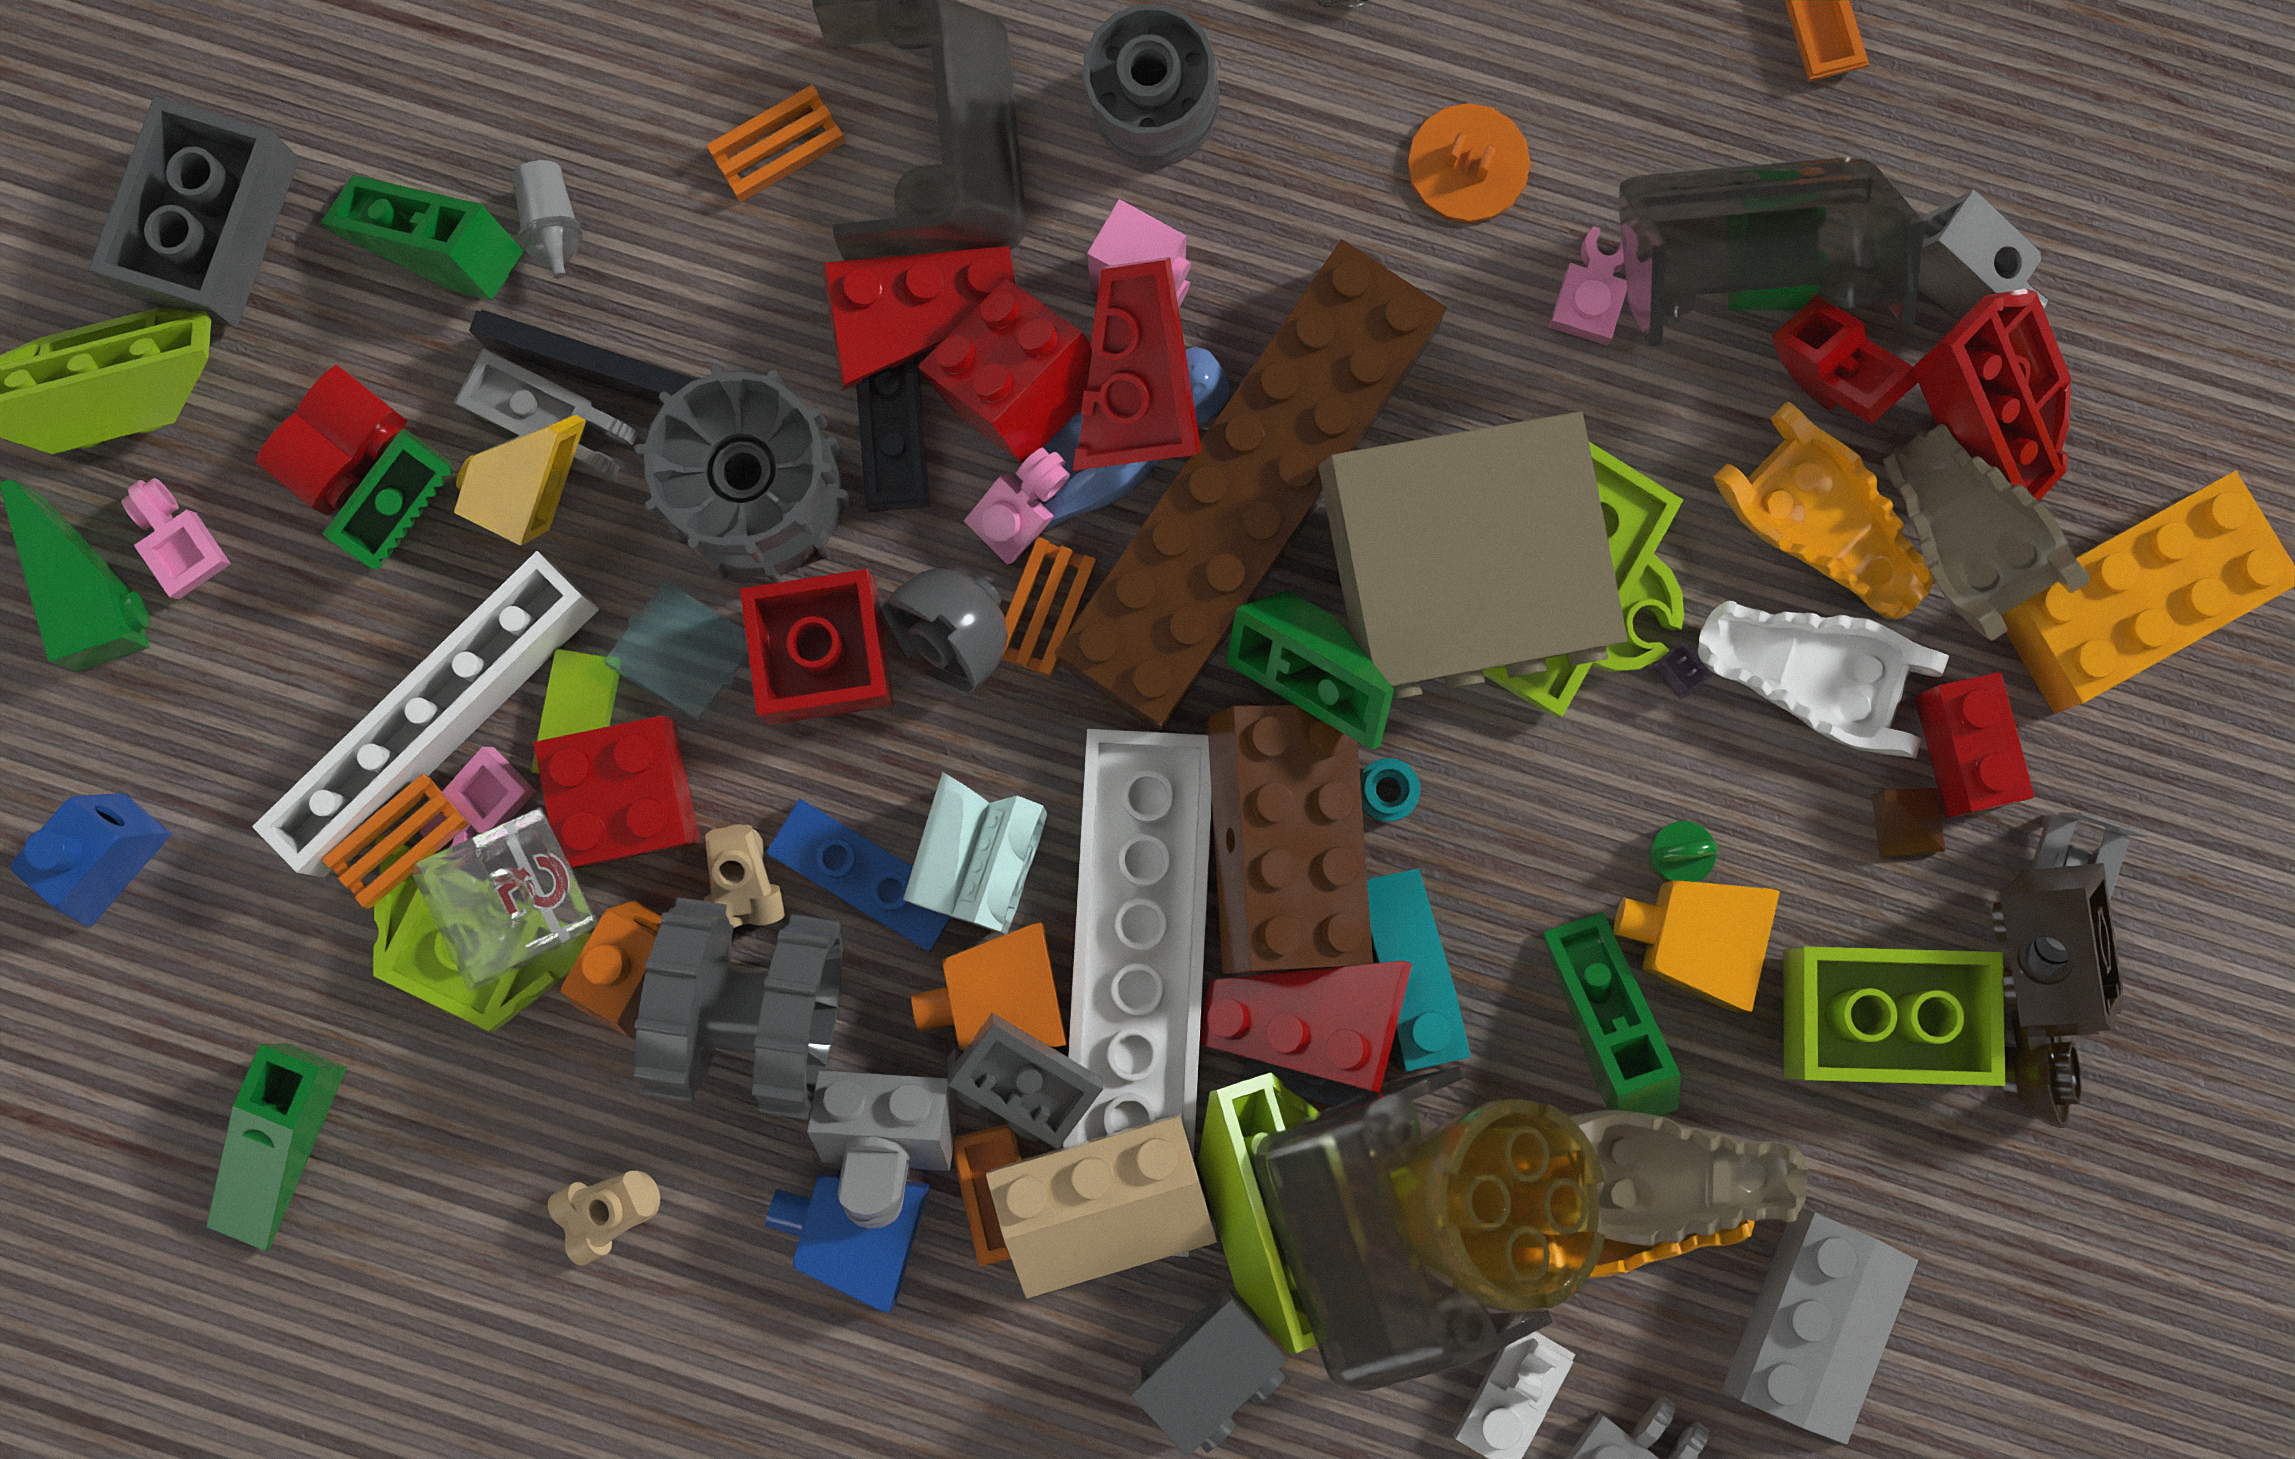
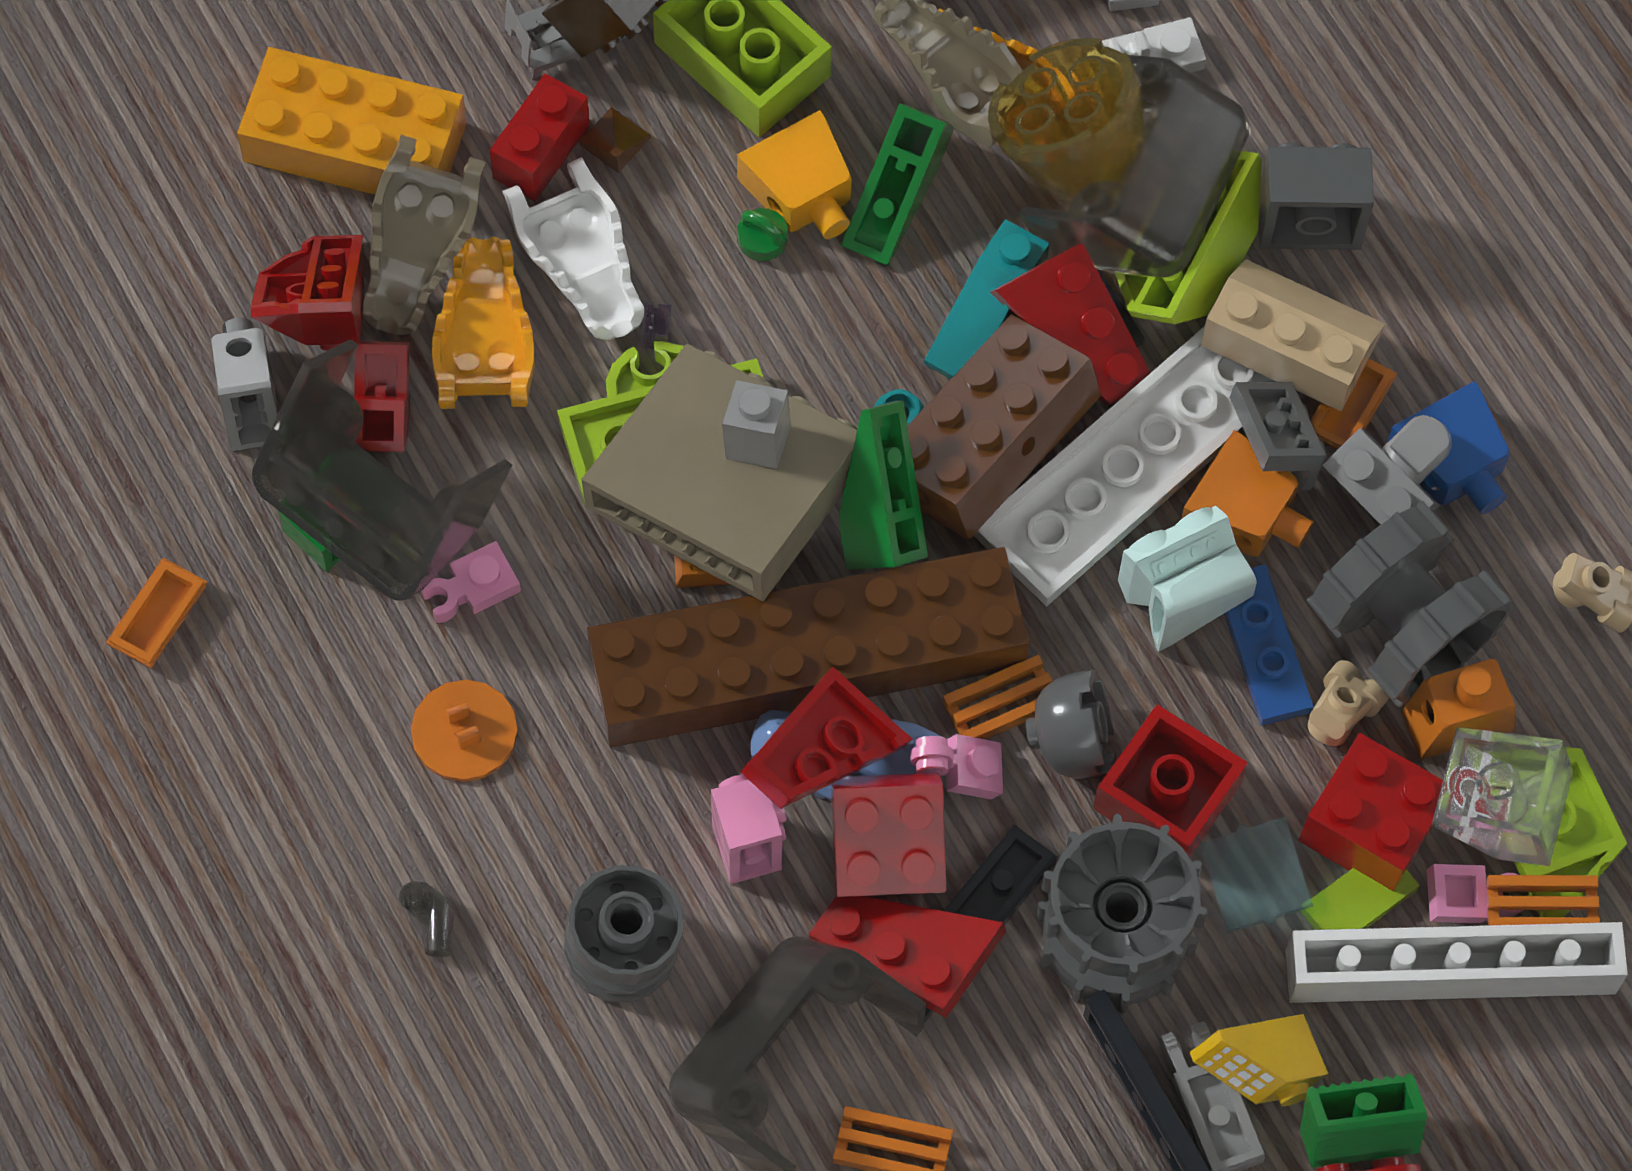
camera: 140 degrees left, 15 degrees down
(1475, 588) = (756, 424): none -> light grey brick

